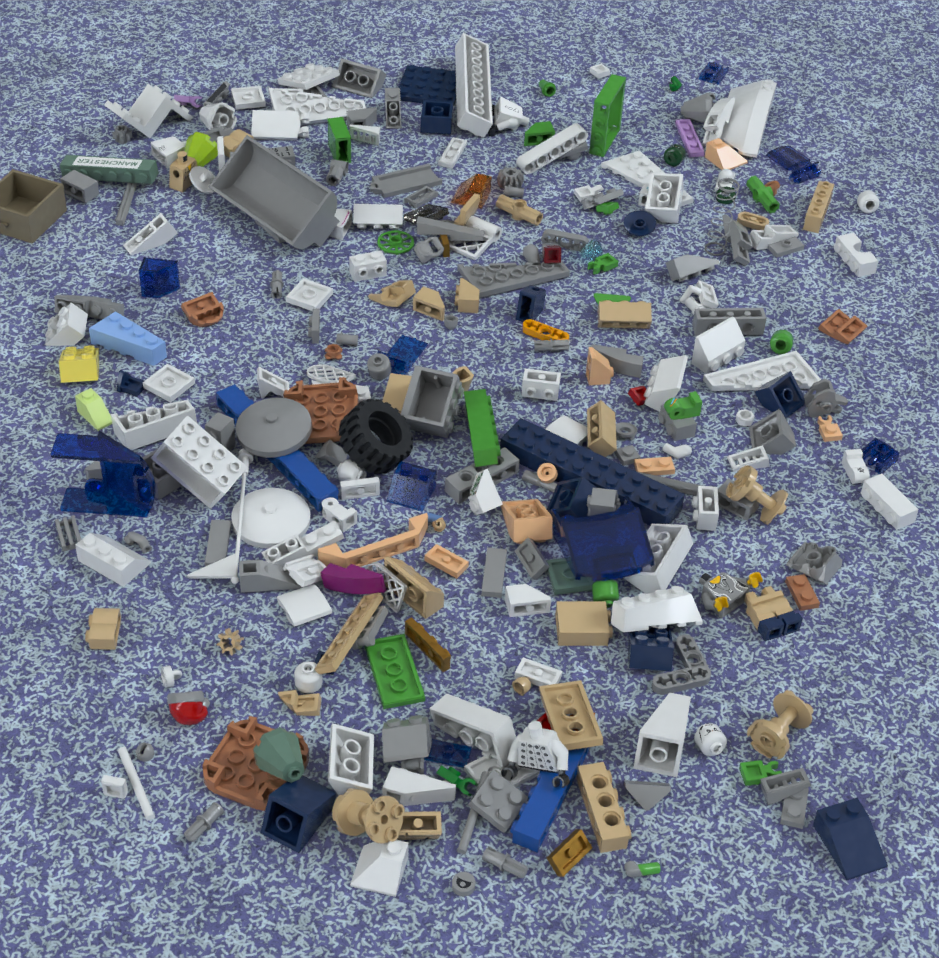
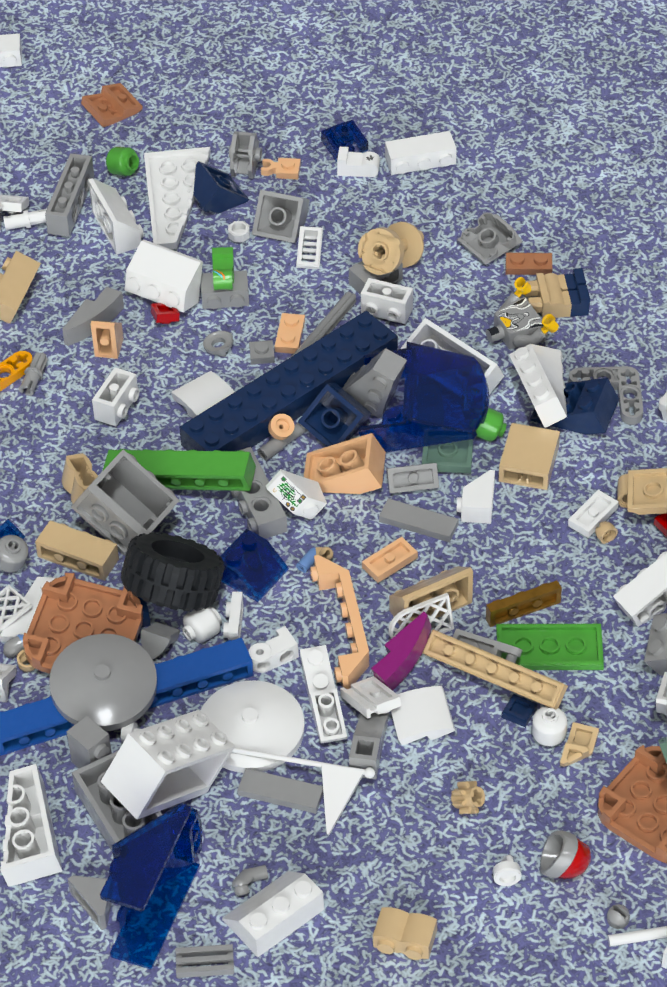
camera: 70 degrees left, 5 degrees up
(601, 429) = (219, 359): tan brick -> none
(677, 452) = (274, 305): white arm -> none

